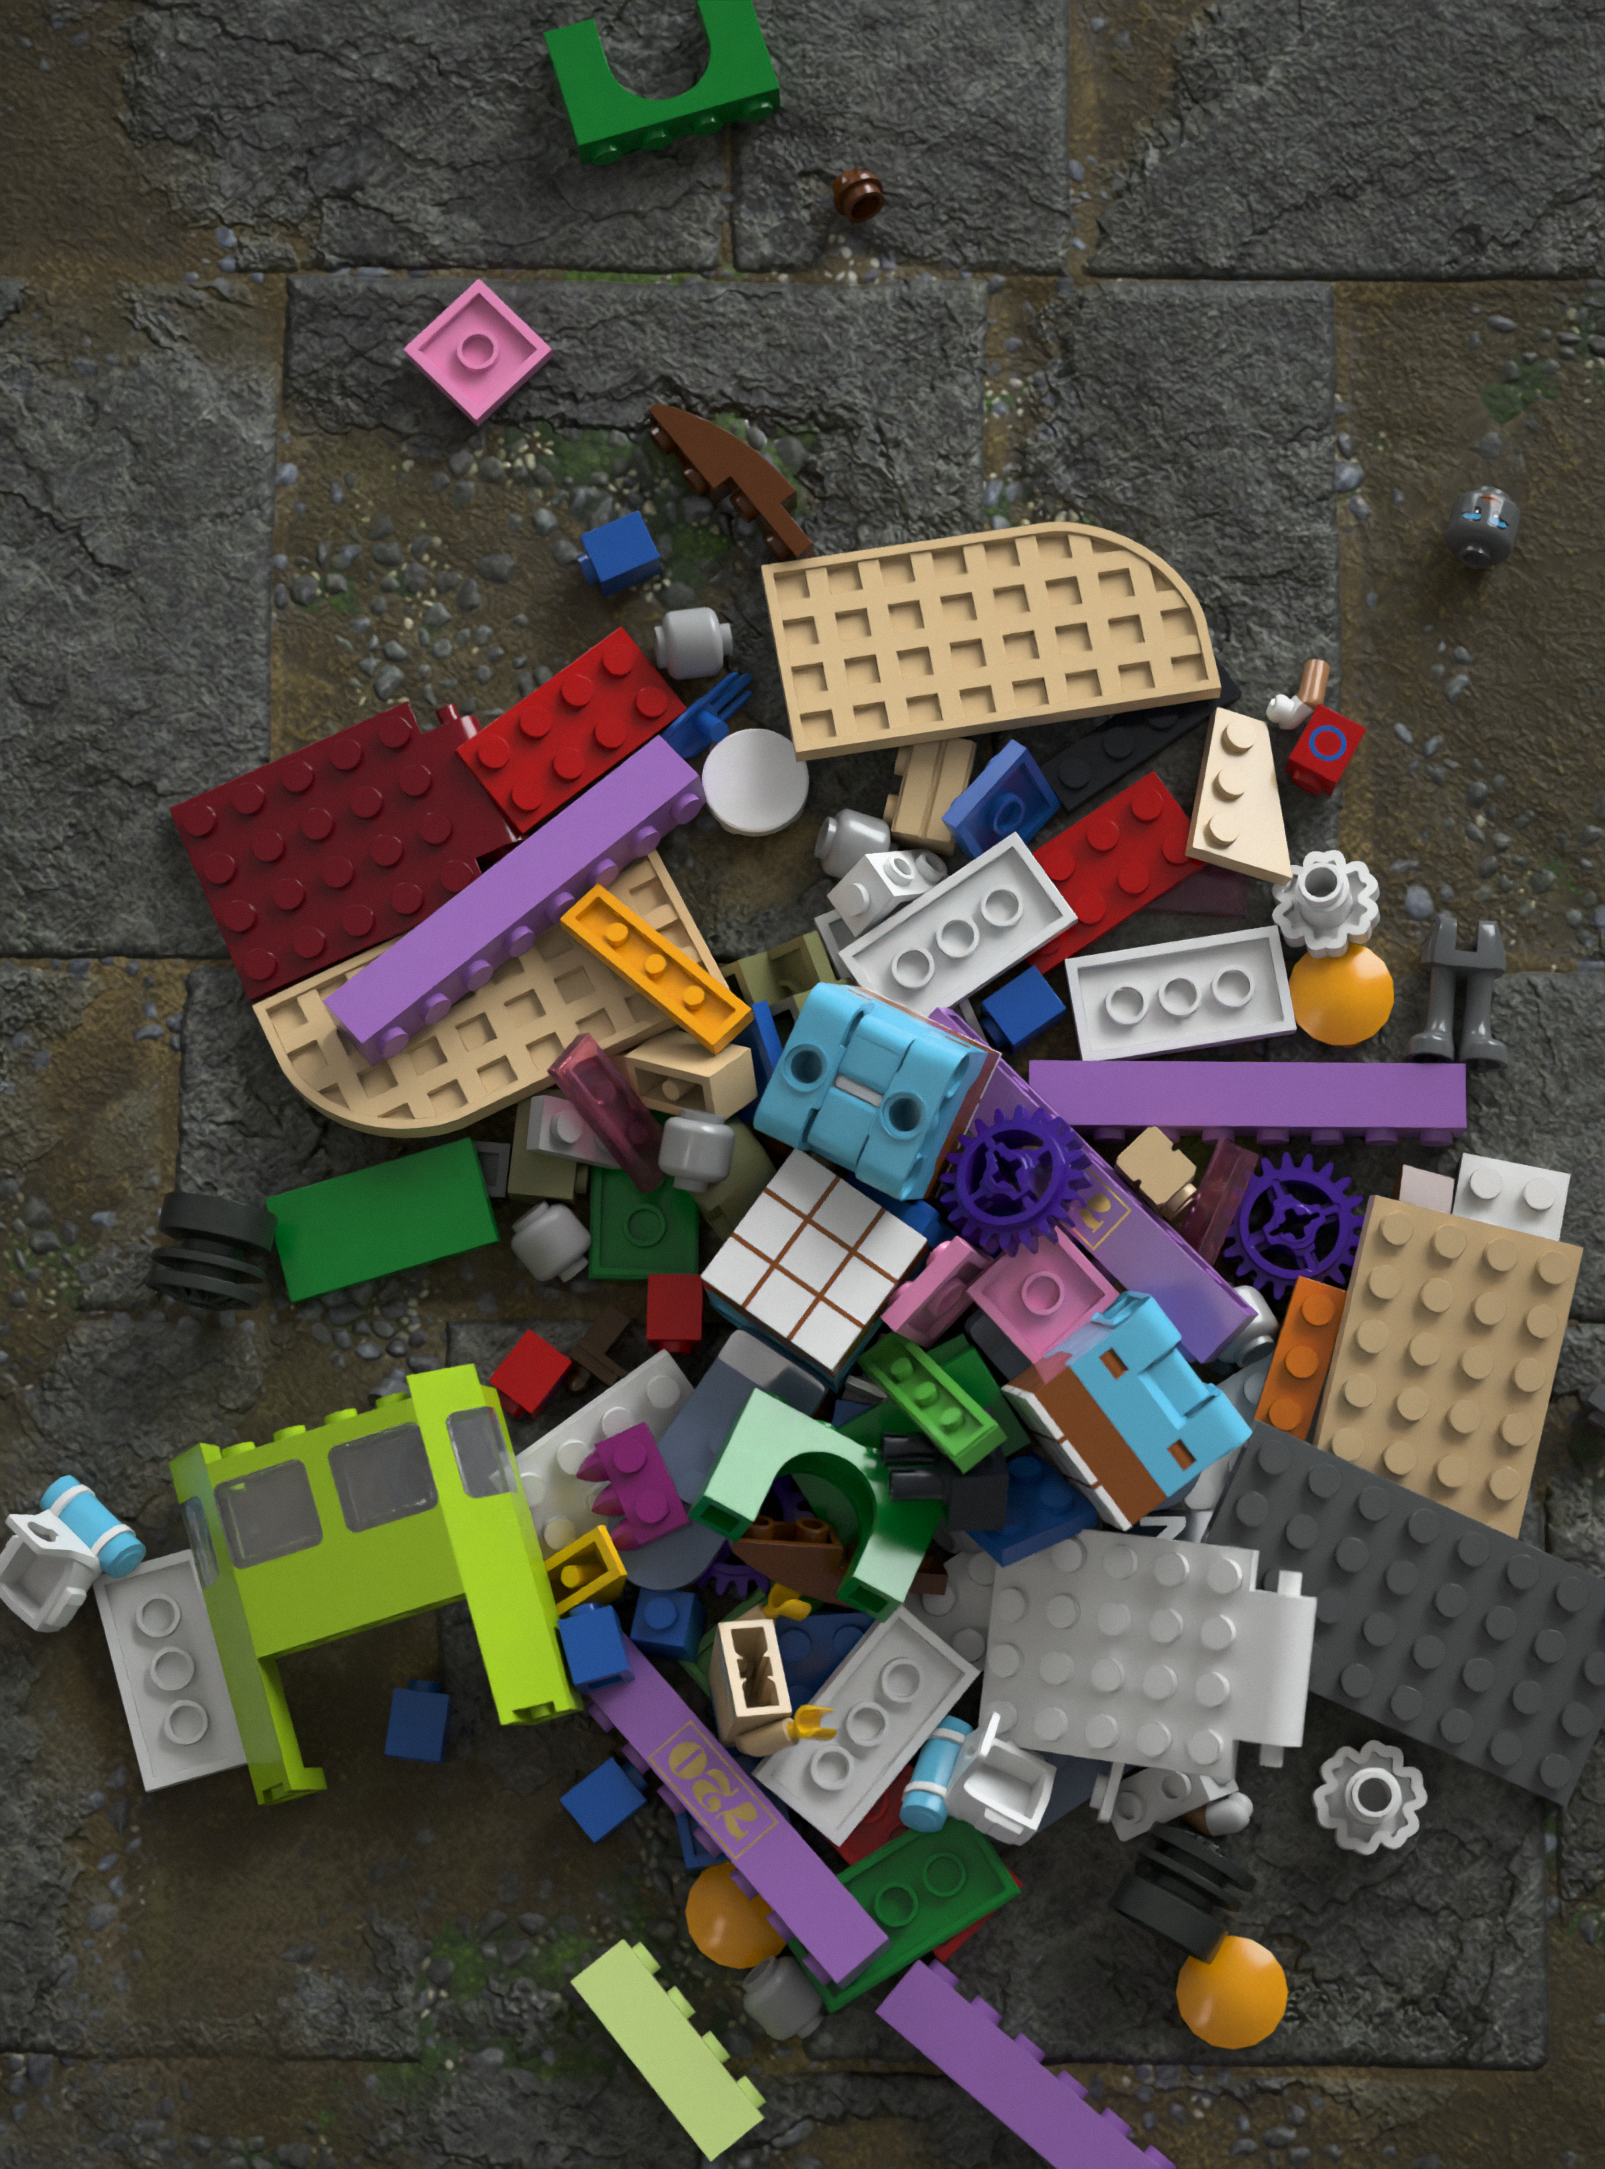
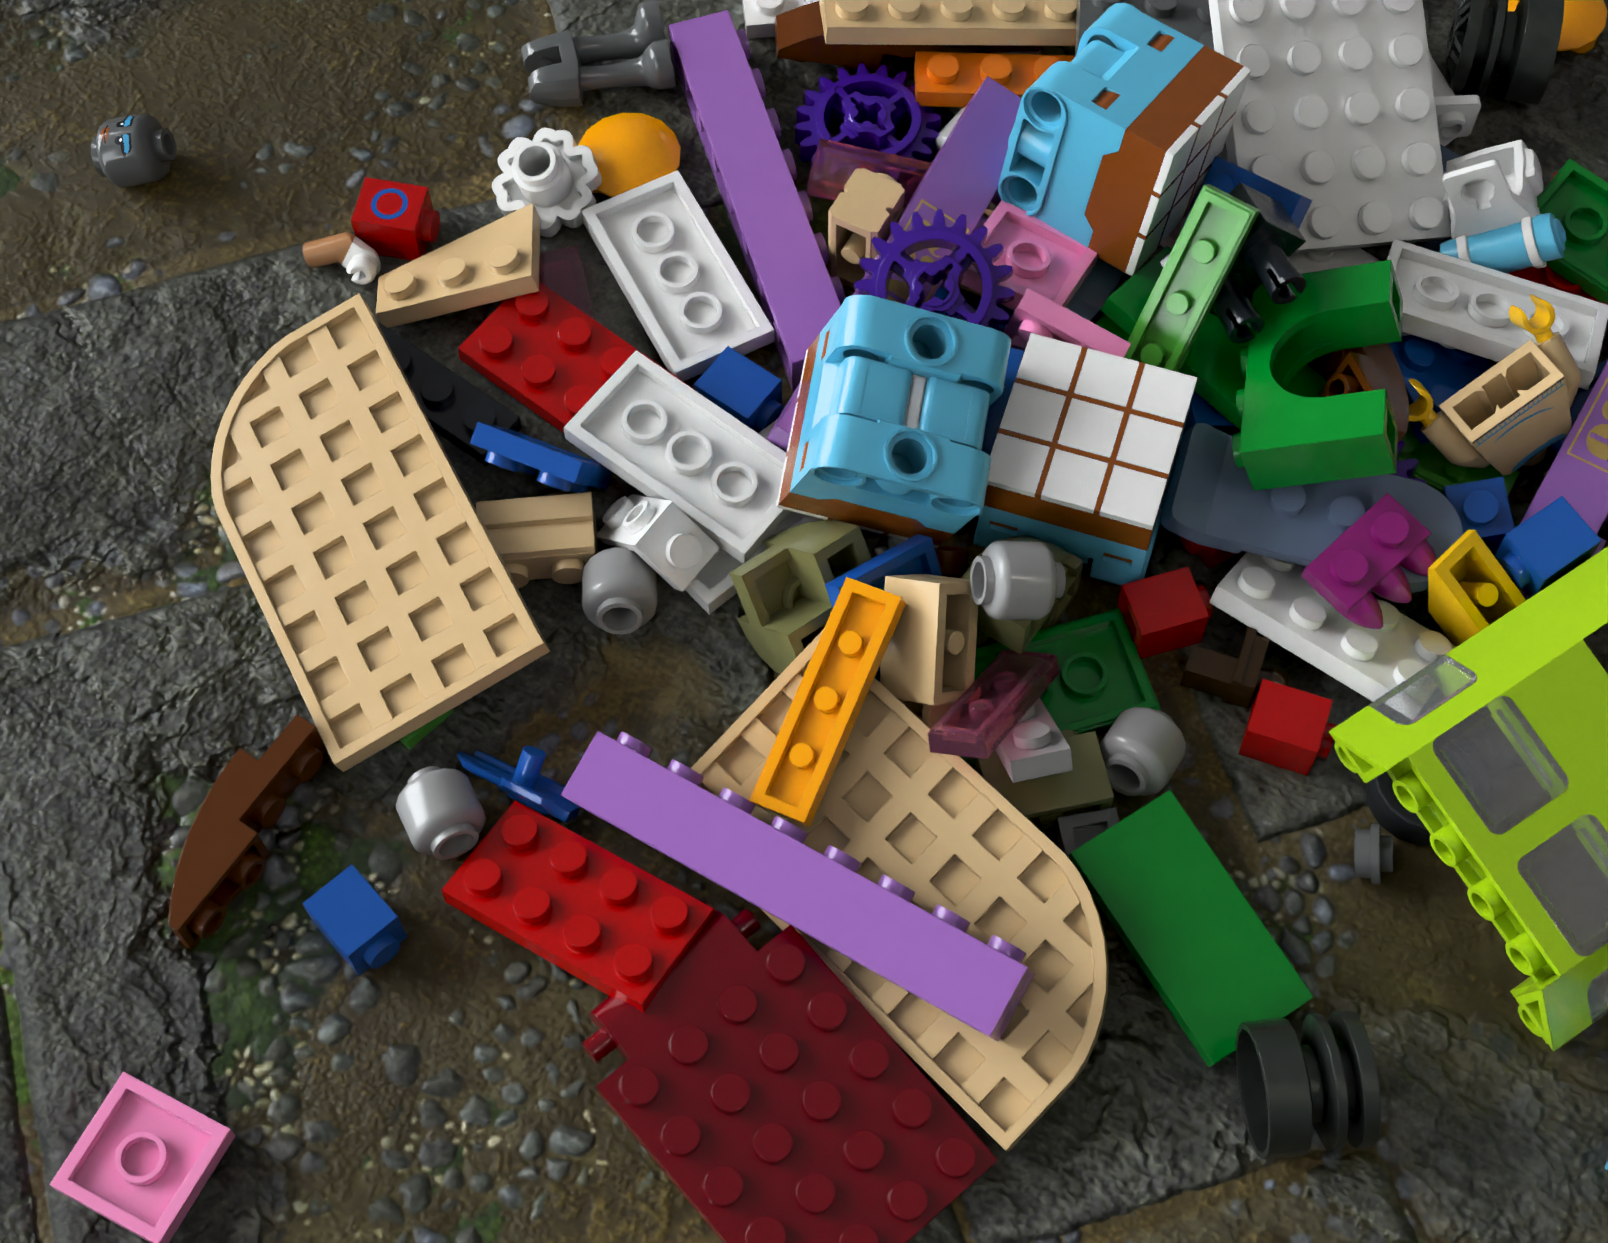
camera: 110 degrees left, 15 degrees down
(755, 783) = (570, 701): white tile -> none

